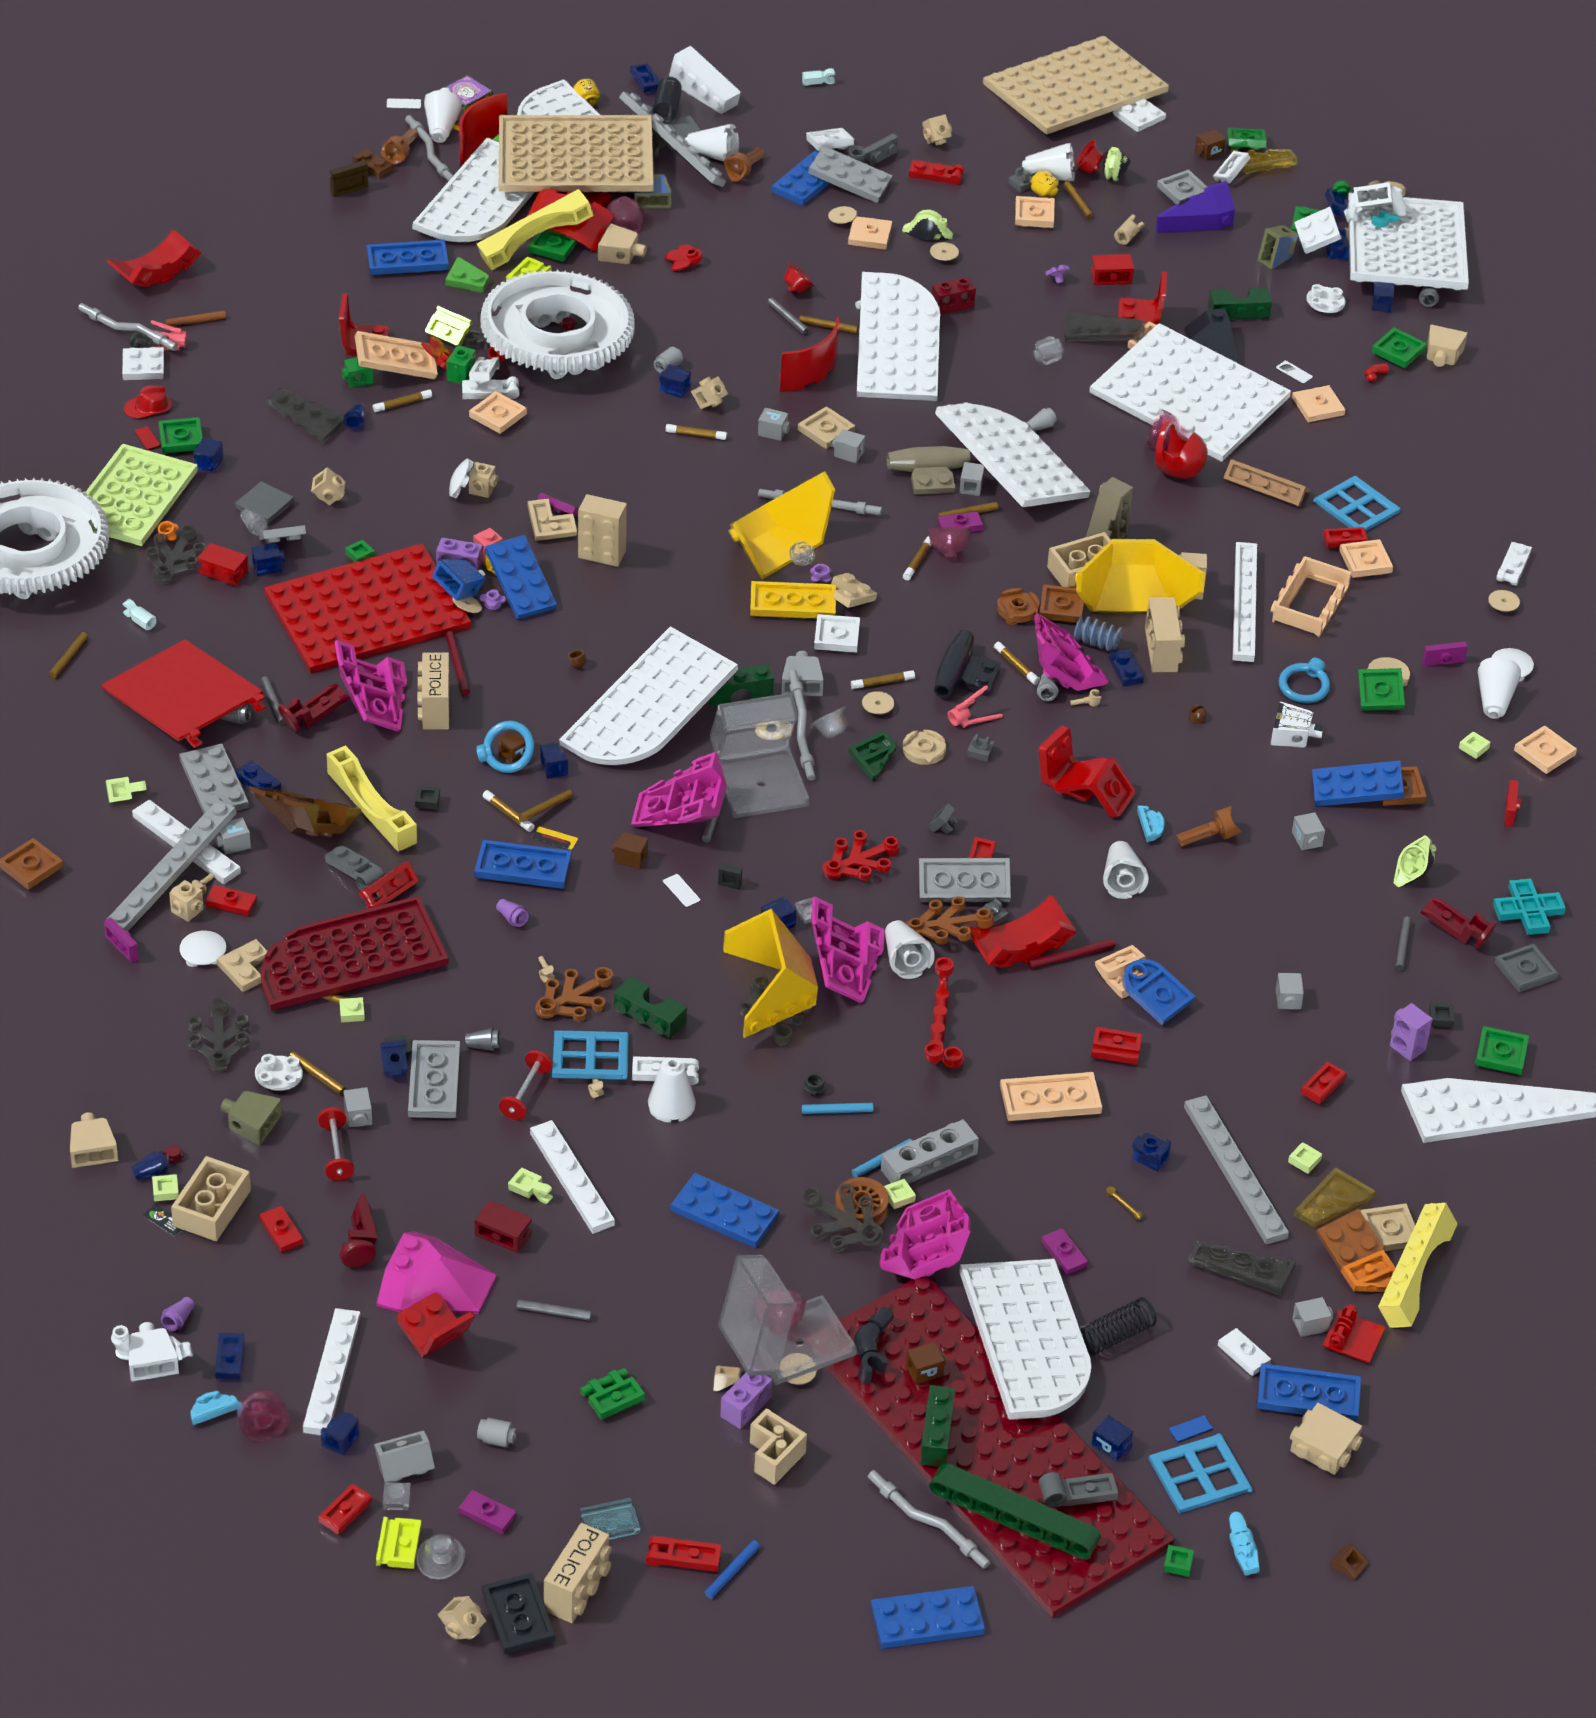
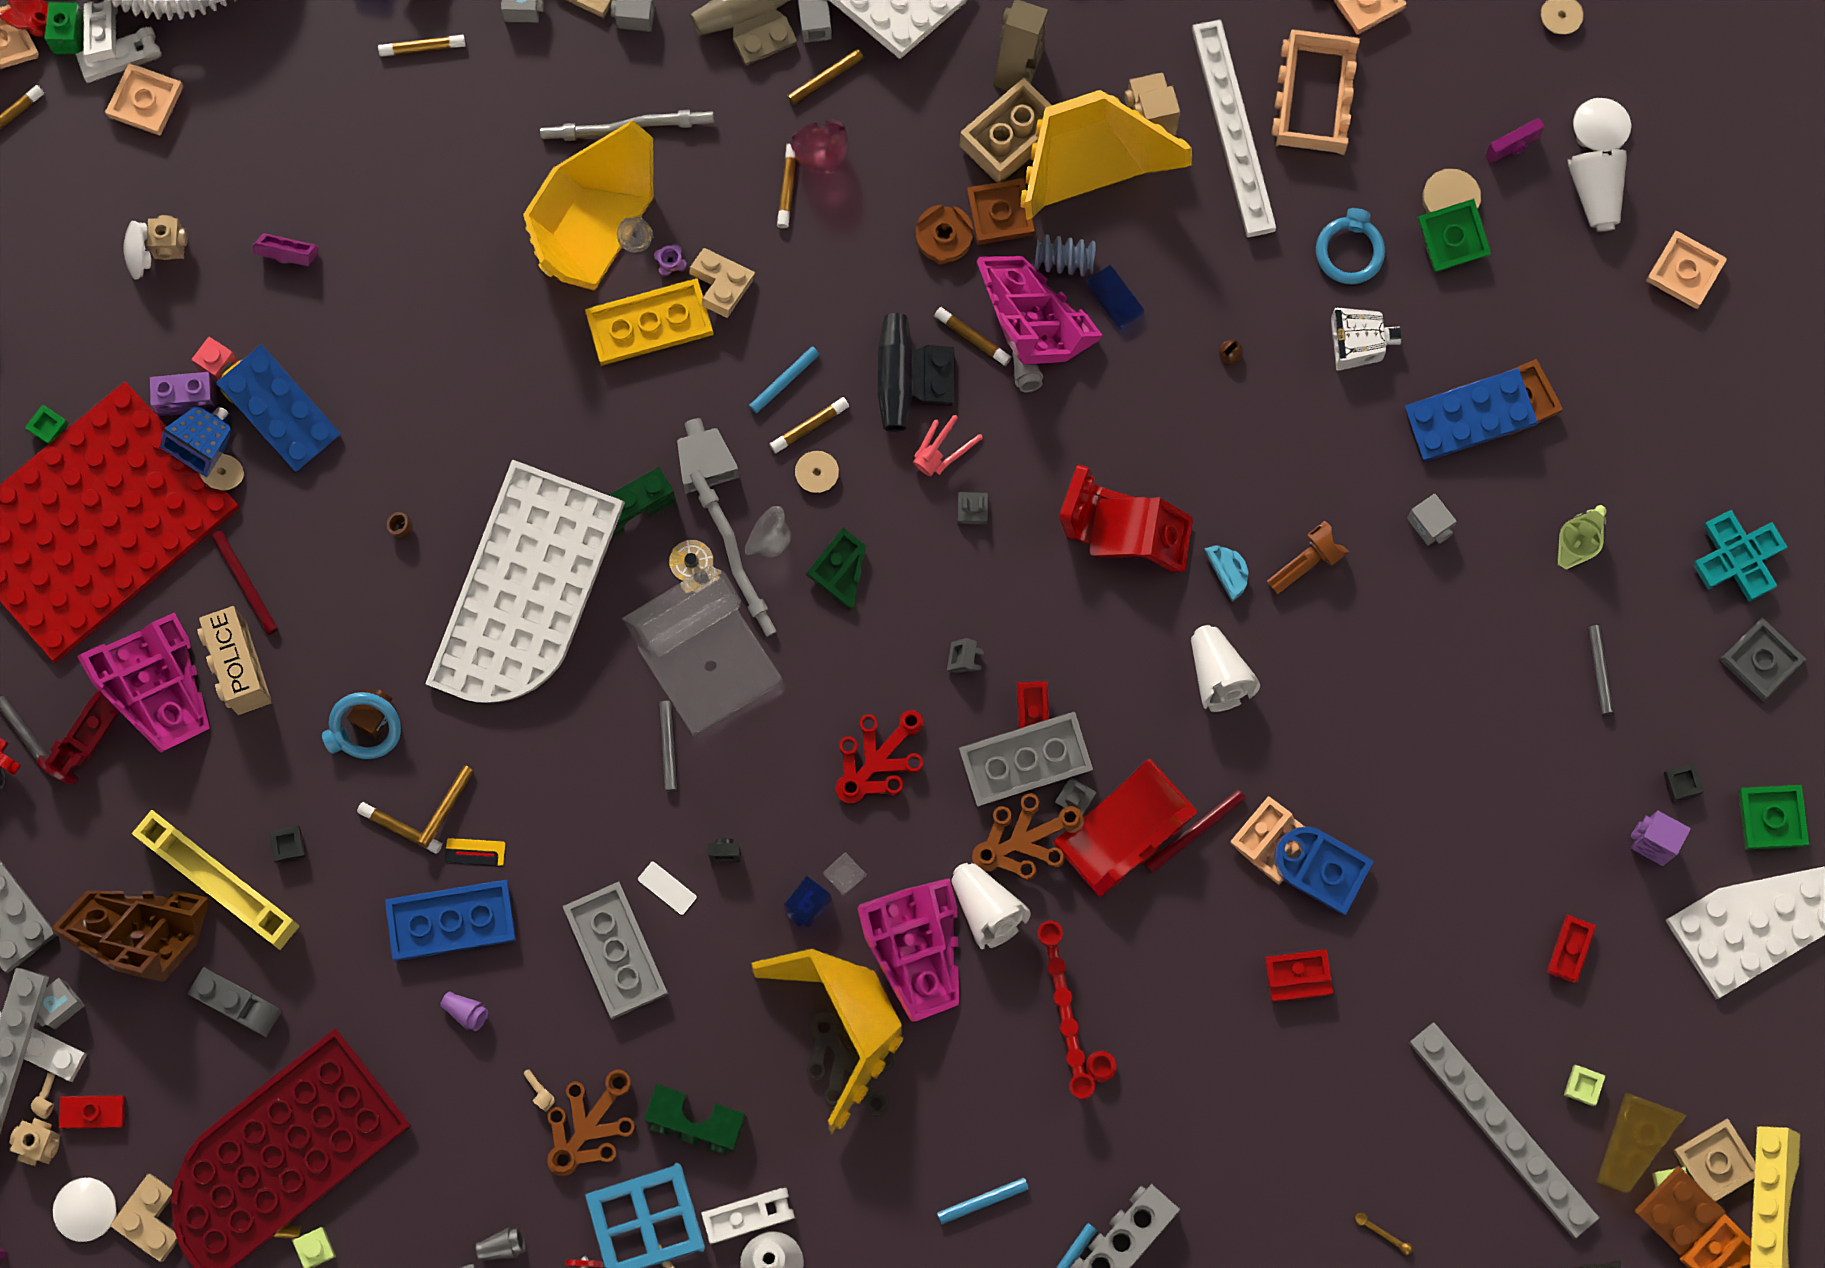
camera: 15 degrees left, 30 degrees up
(255, 776) = (52, 883): clear blue plate -> none
(389, 885) = (290, 1025): red plate -> none
(492, 599) = (256, 458): medium lavender plate -> none
(548, 526) = (278, 294): tan plate -> none
(553, 760) = (429, 722): clear blue brick -> none
(602, 530) = (361, 298): tan brick -> none
(630, 850) = (581, 850): reddish brown brick -> none
(631, 908) = (615, 950): none -> light grey plate
(686, 798) = (623, 749): dark pink wedge -> none
(814, 1084) = (934, 1176): pearl dark grey plate -> none
(837, 633) = (725, 364): white plate -> none
(874, 653) = (781, 382): none -> dark azure bar
(924, 747) = (899, 528): tan tile -> none
(969, 519) = (823, 102): magenta plate -> none
(1050, 1096) = (1243, 1091): light nougat plate -> none
(1093, 699) = (1084, 372): tan hand -> none
(1151, 1151) = (1407, 1141): clear blue brick -> none
(1164, 634) = (1152, 235): tan brick -> none
(1289, 991) = (1487, 809): light grey brick -> none
(1457, 923) = (1665, 619): dark red piece -> none
(1474, 745) = (1596, 291): yellowish green plate -> none
(1512, 803) = (1671, 382): red plate -> none

